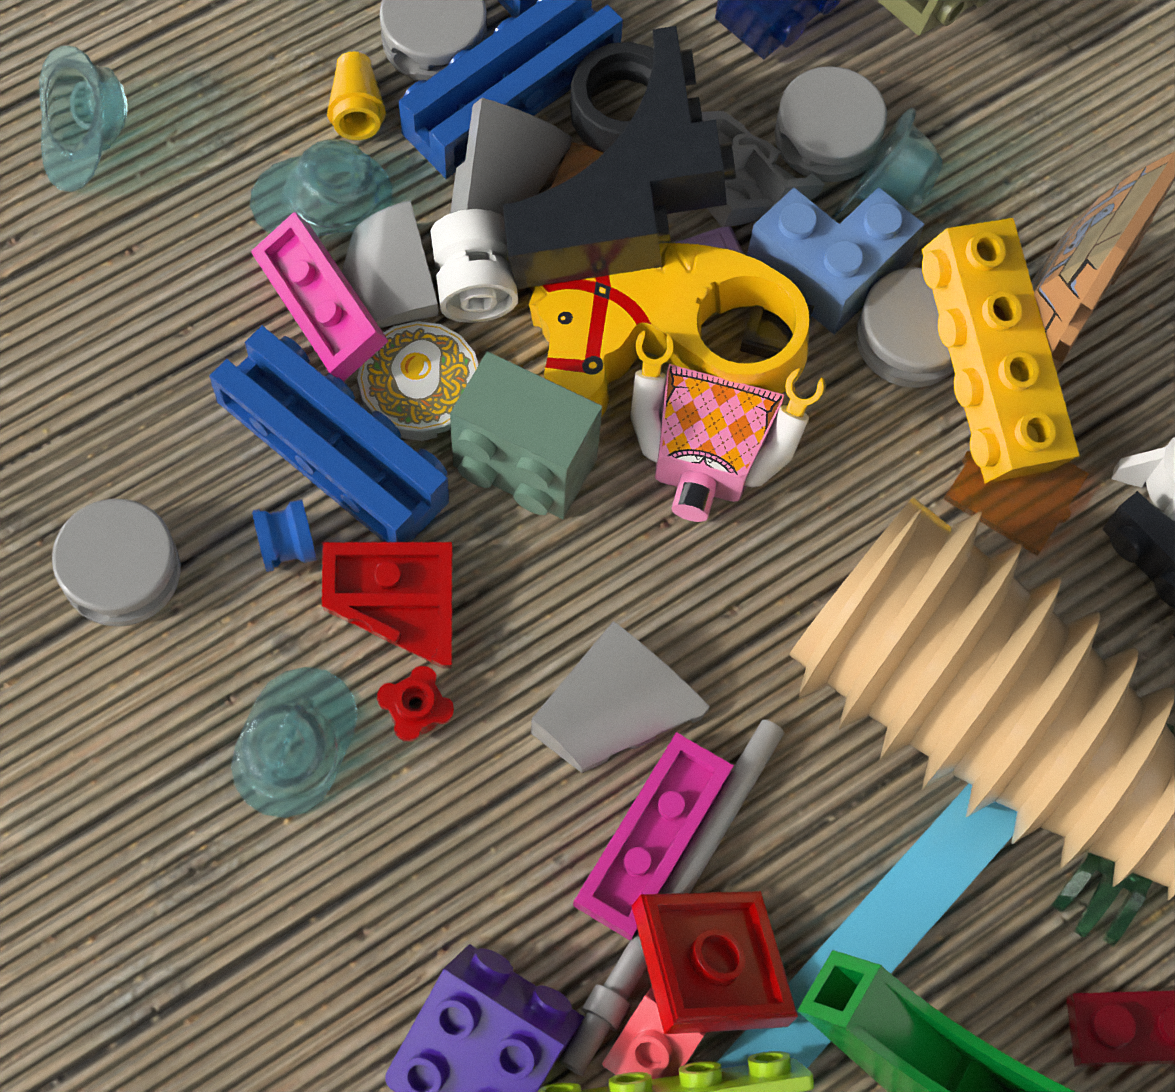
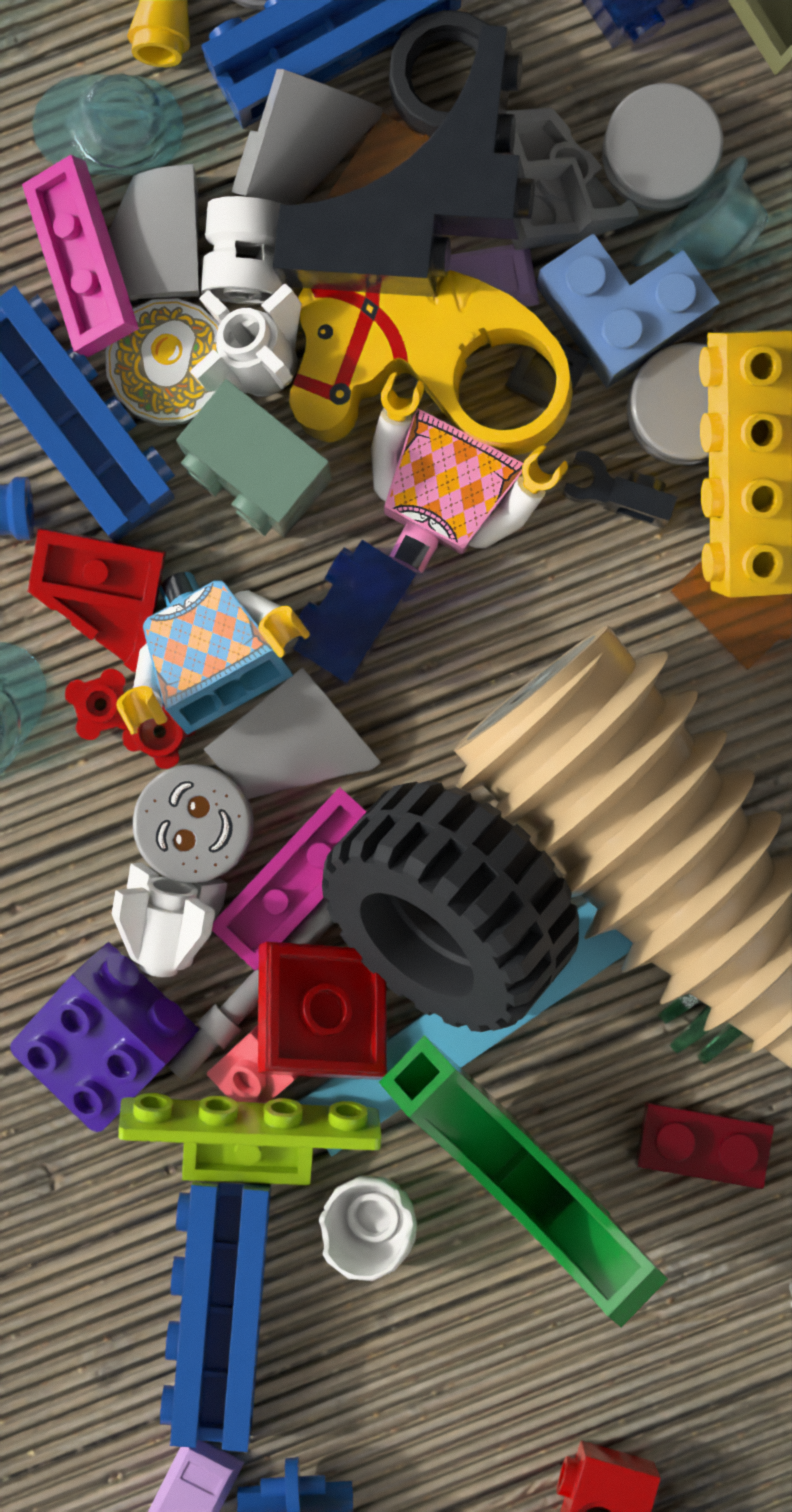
camera: 15 degrees right, 20 degrees up
(479, 701) = (163, 749): none -> red plate
(500, 329) = (253, 345): none -> white brick
(523, 619) = (207, 653): none -> torso
(528, 902) = (165, 919): none -> white brick
(534, 800) = (193, 823): none -> light grey head
(651, 564) = (354, 612): none -> clear blue brick
(863, 752) = (451, 905): none -> black tyre
(886, 415) = (636, 498): none -> black plate

